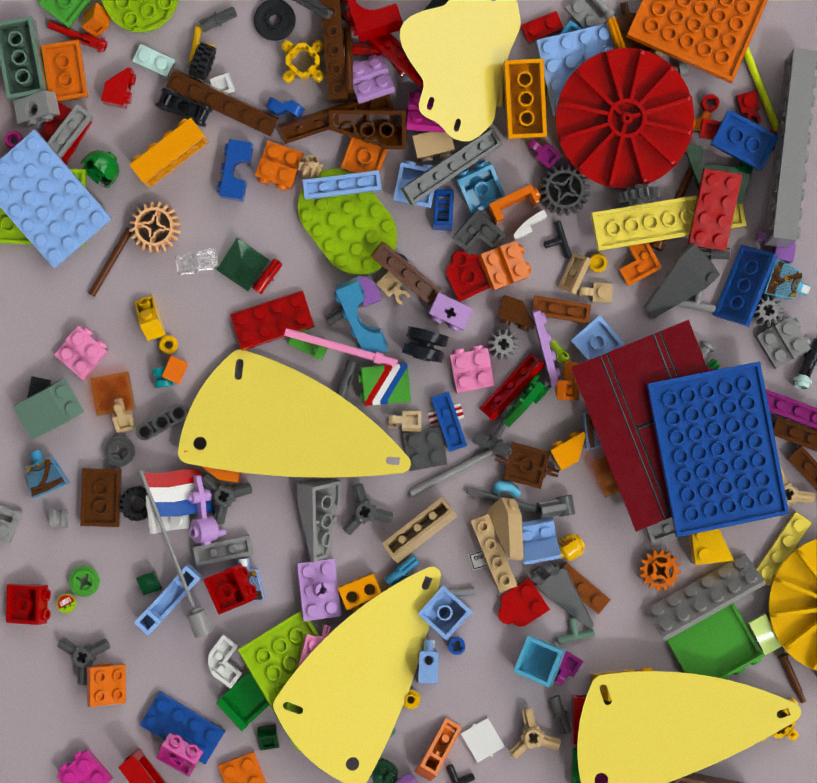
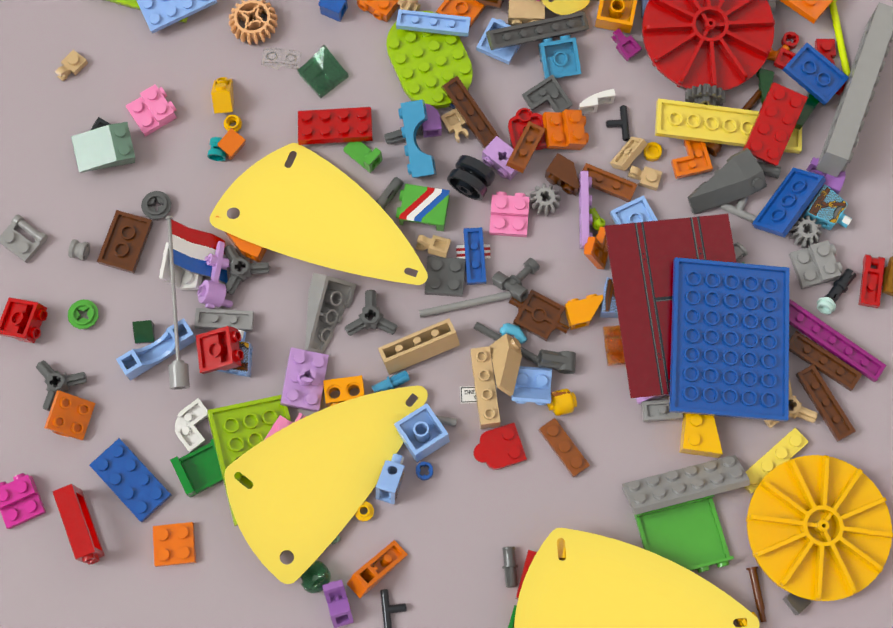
camera: 20 degrees right, 15 degrees down
(44, 475) = (79, 208): torso -> none
(66, 603) = (59, 331): tile -> none
(110, 262) = (200, 44): reddish brown bar -> none
(112, 387) = (167, 152): clear orange plate -> none
(122, 419) = (169, 176): tan plate -> none
(125, 503) = (146, 252): black tyre -> none
(152, 423) = (196, 184): dark grey beam -> none
(179, 754) = (117, 501): dark pink plate -> none
(267, 276) = (342, 86): red axle -> none
(268, 737) = (211, 512): dark green slope -> none
(377, 357) = (421, 175): bright pink bar -> none
(442, 224) = (519, 82): blue slope -> none
(471, 299) = (525, 147): none -> dark orange plate
(482, 739) = (424, 573): white piece -> none
(512, 386) = (543, 239): red plate -> none
(527, 192) = (585, 73): orange panel -> none
(531, 727) = (485, 586): tan bush -> none
(534, 393) = (551, 250): green plate -> none
(539, 660) = (503, 503): medium azure piece -> none
(556, 185) = (633, 70): dark grey gear -> none
(562, 591) = (543, 444): dark grey flag -> none
(569, 666) = (531, 520): magenta plate -> none
(575, 634) = (545, 491): sand green piece -> none
(666, 564) = (649, 456): orange gear -> none
(764, 634) = (738, 540): yellowish green slope -> none

